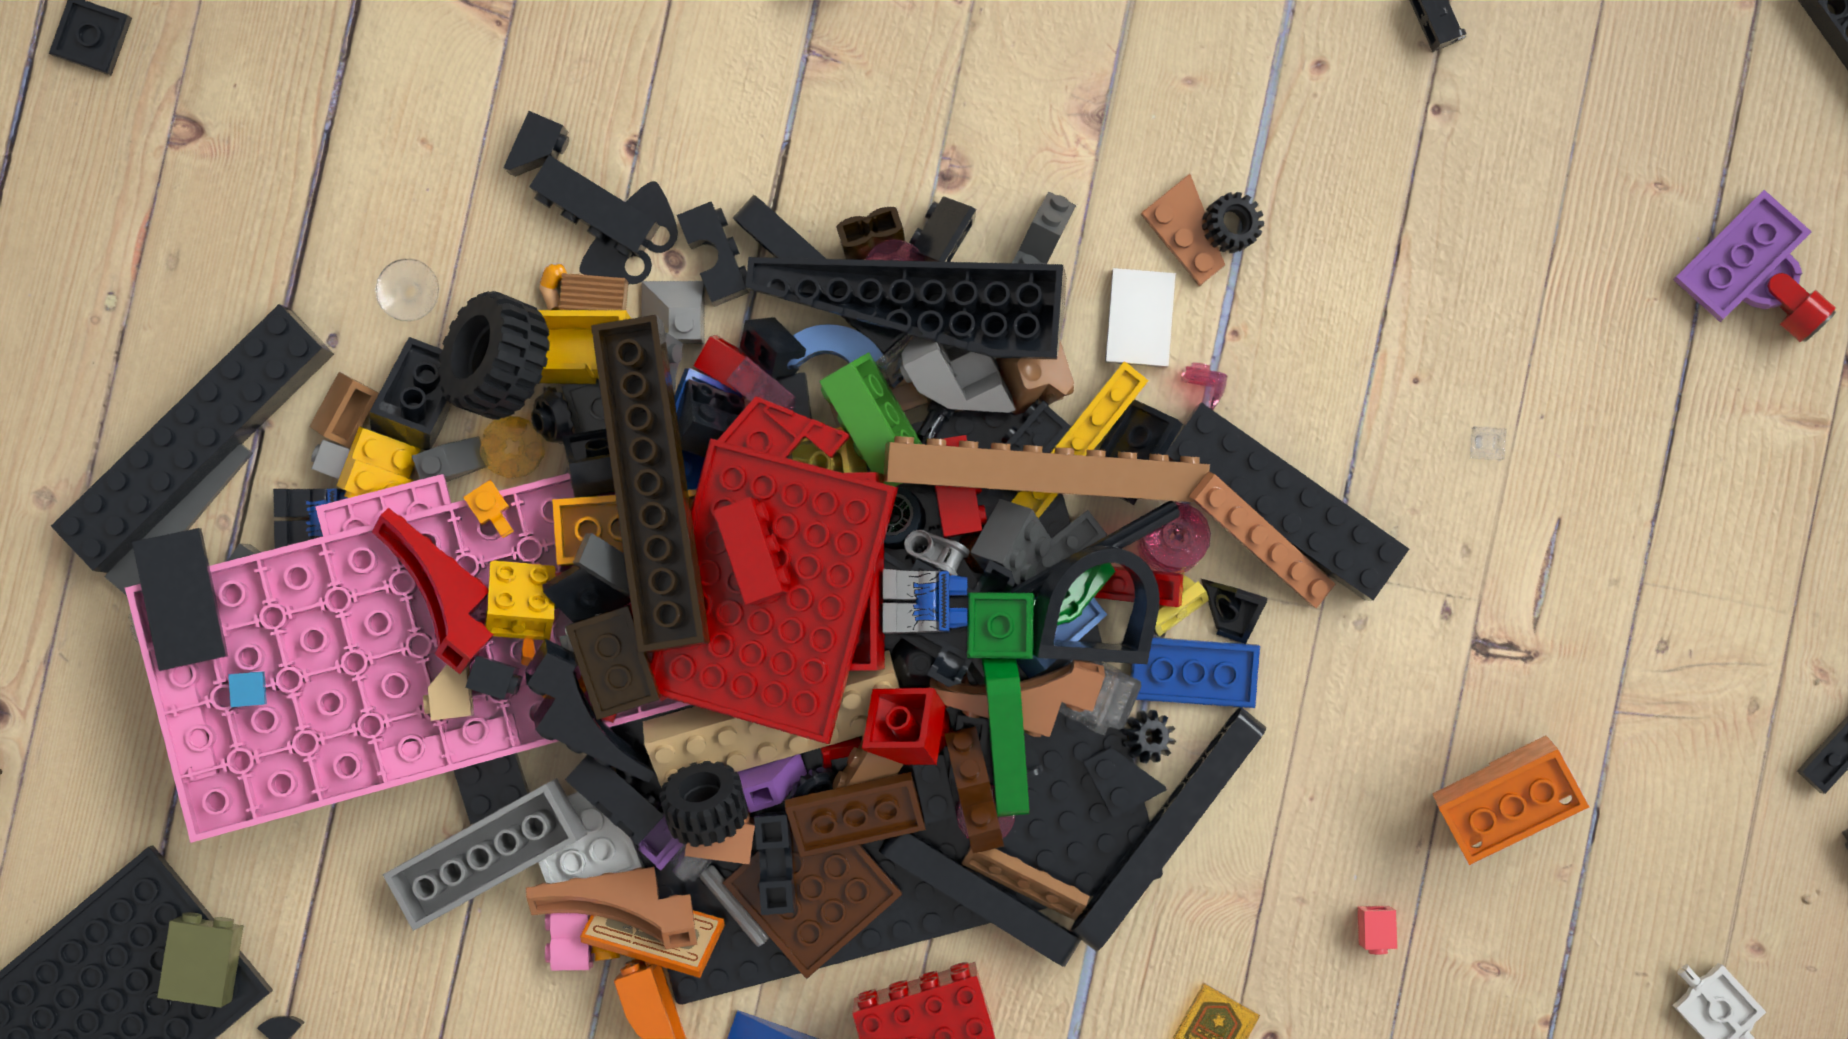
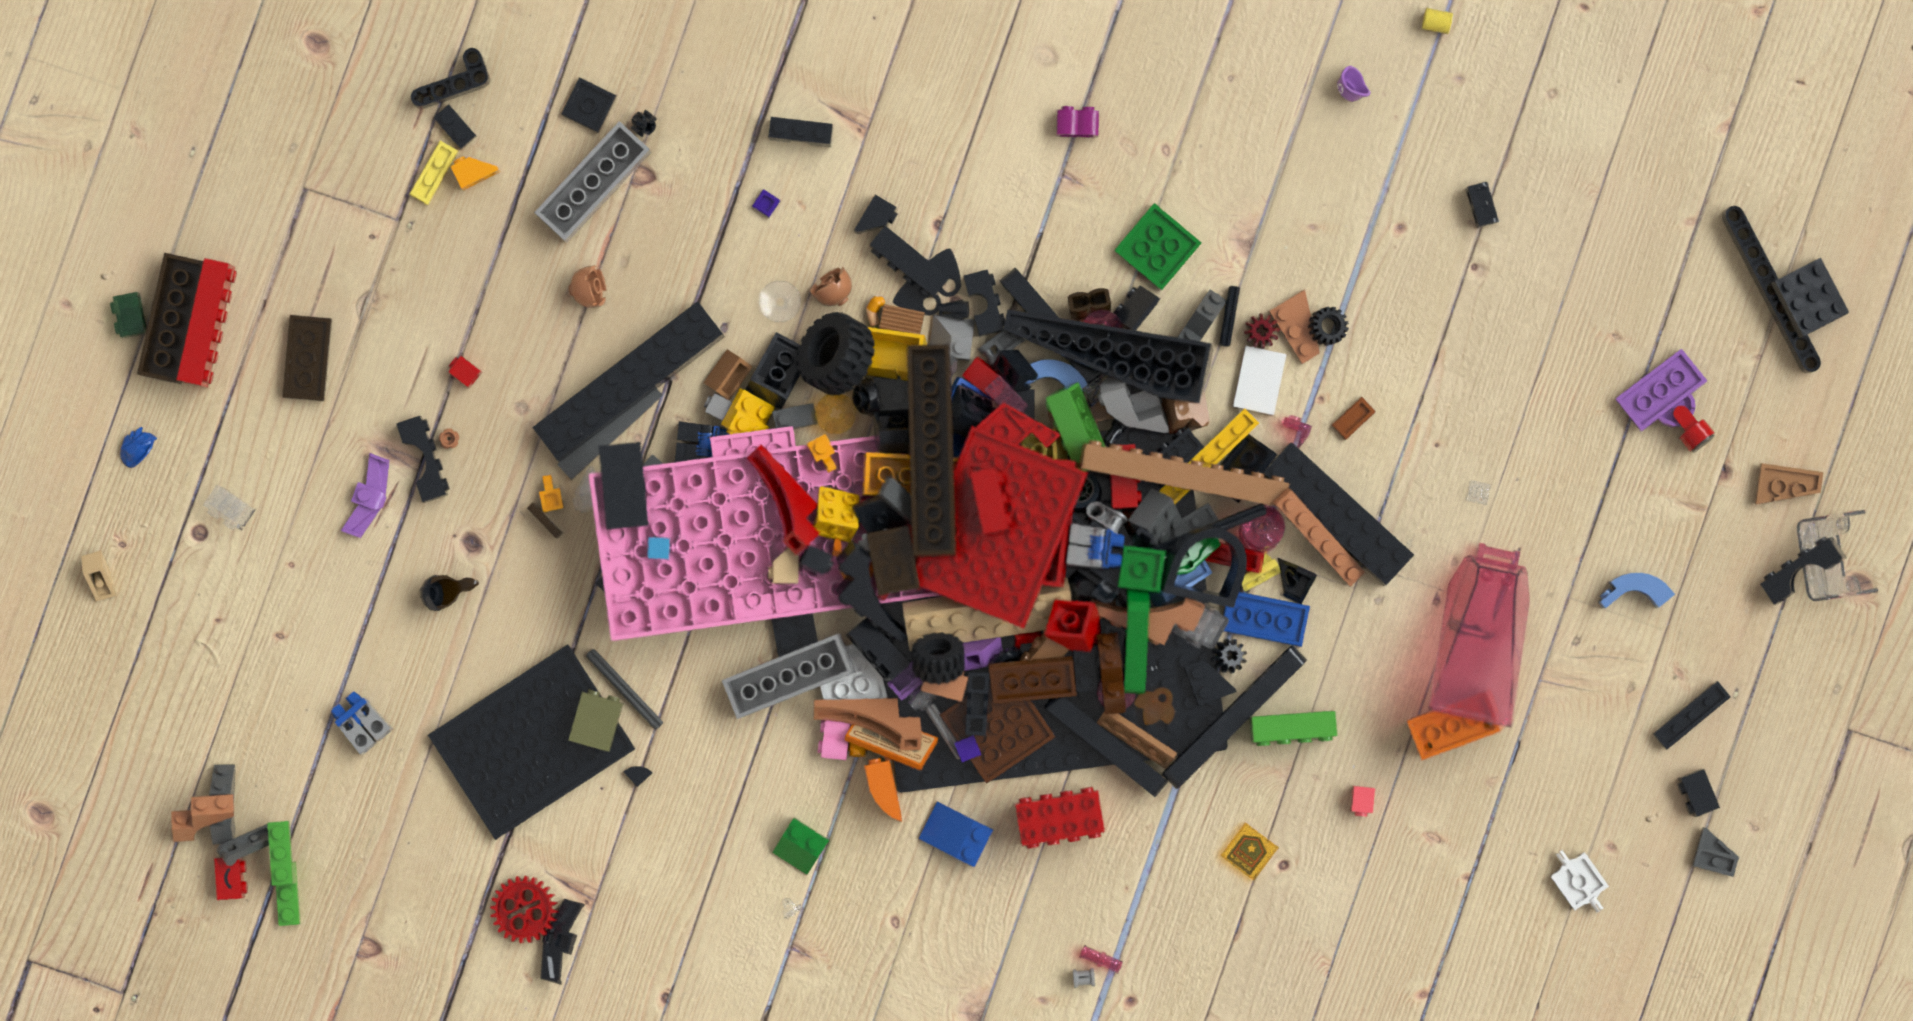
camera: 10 degrees right, 0 degrees up
(93, 663) = (544, 519): none -> dark brown tile
(99, 628) = (550, 498): none -> light orange plate
(102, 147) = (593, 182): none -> light grey brick
(116, 303) = (587, 287): none -> nougat cylinder
(171, 50) = (643, 123): none -> black gear
(245, 902) = (630, 695): none -> dark grey axle
(372, 147) = (766, 203): none -> dark purple tile
(424, 30) = (800, 130): none -> black arch
(484, 260) = (834, 288): none -> nougat cylinder
(675, 268) = (956, 309): none -> black cone
(749, 307) = (1002, 341): none -> dark grey plate
(770, 931) = (967, 748): none -> dark purple tile
(963, 137) = (1157, 246): none -> green plate
(1048, 831) = (1153, 708): none -> clear orange plate
(1083, 227) = (1229, 316): none -> black axle
(1140, 234) = (1257, 336): none -> dark red gear
(1261, 833) = (1293, 726): none -> bright green brick
(1287, 356) = (1353, 418): none -> dark orange tile
(1531, 667) = (1482, 638): none -> clear pink windscreen
(1768, 552) = (1647, 584): none -> medium blue arch

